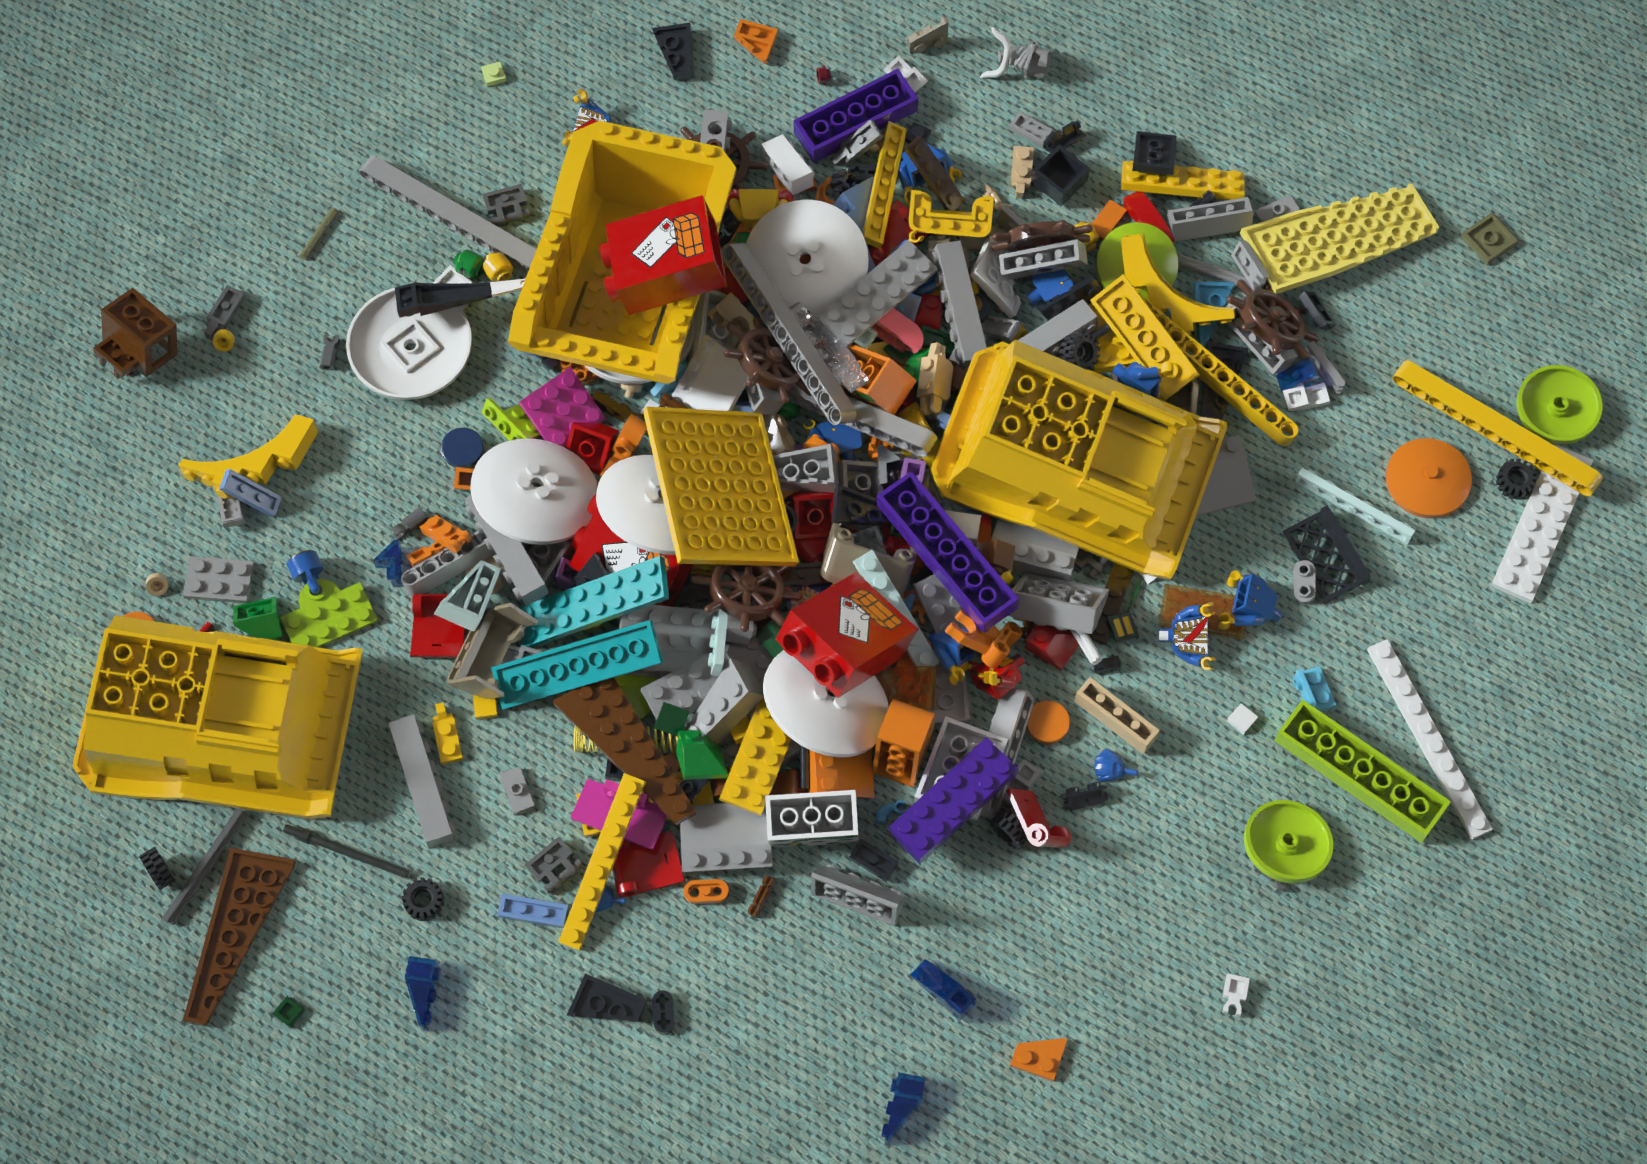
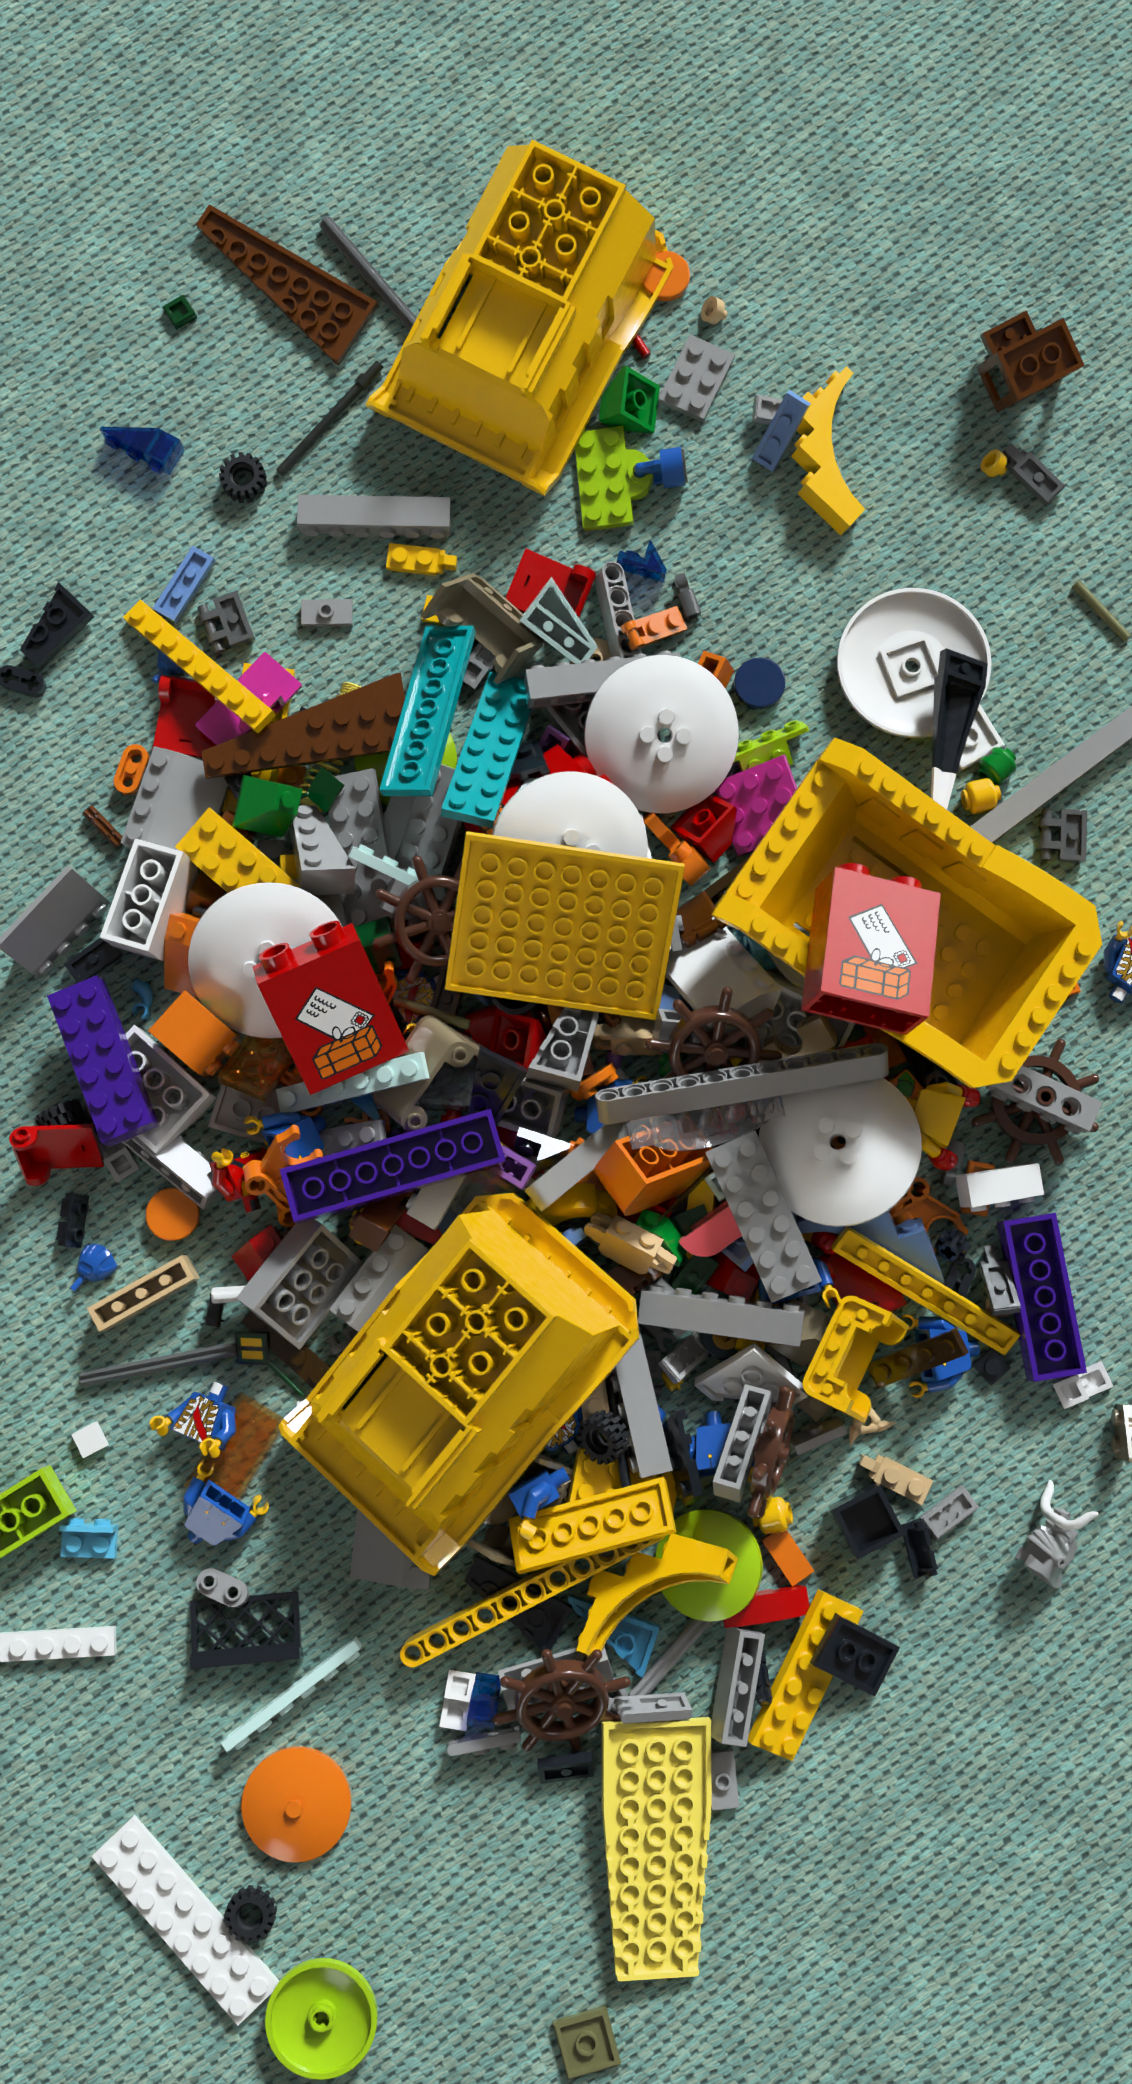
camera: 110 degrees right, 15 degrees up
(157, 868) = (379, 220): black tyre -> none
(329, 353) = (937, 575): dark grey bar -> none
(423, 553) = (640, 598): orange plate -> none
(817, 578) = (427, 1010): none -> olive bar
(823, 75) = (1117, 1280): dark red plate -> none
(1165, 691) = (158, 1364): none -> dark grey axle
(1497, 428) = (319, 1922): yellow beam -> none

